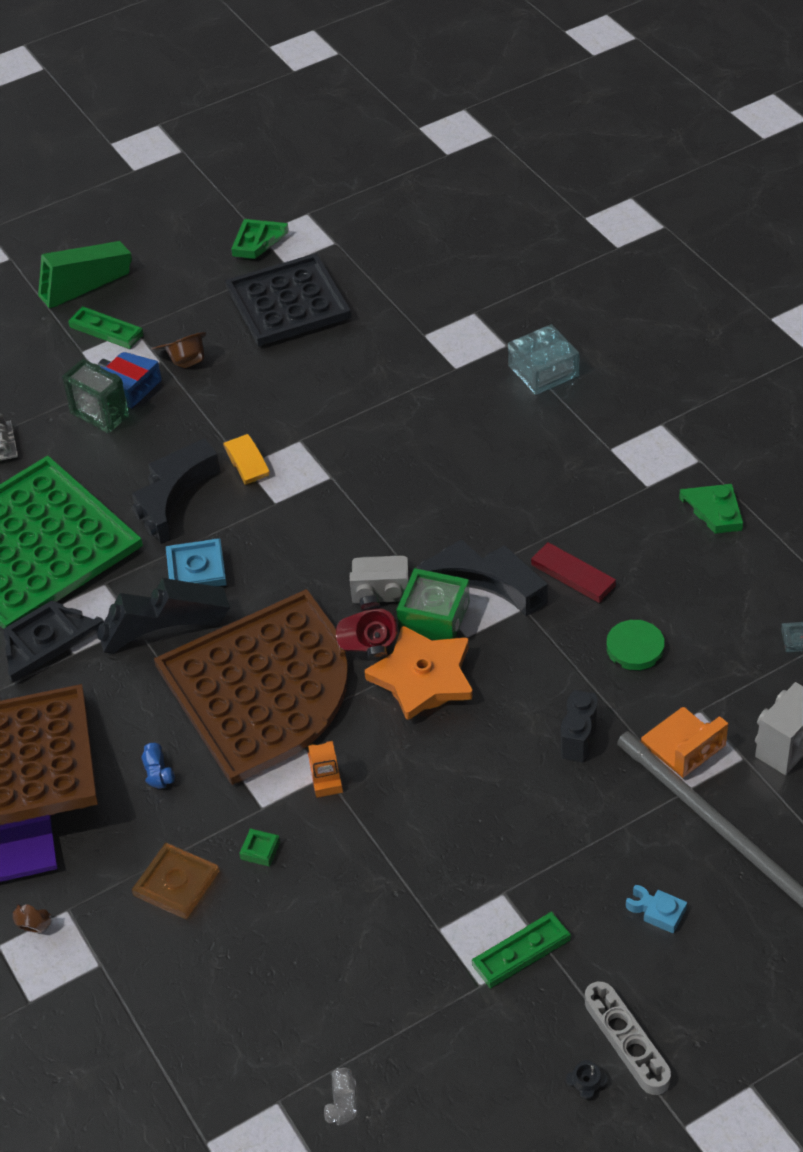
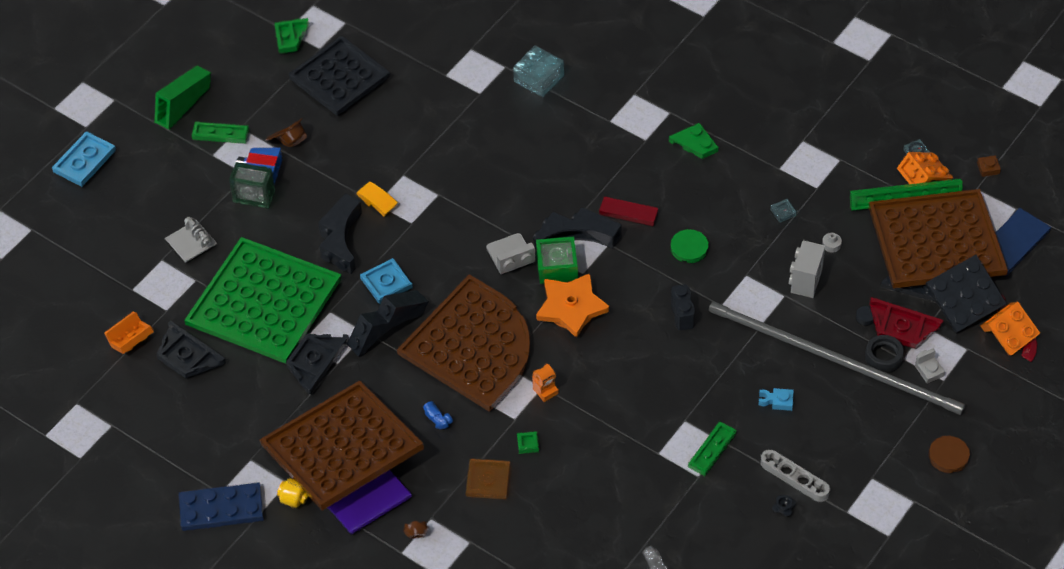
camera: 25 degrees left, 5 degrees up
(368, 630) = (526, 288): dark red cap -> none
(686, 741) = (747, 296): orange bracket -> none

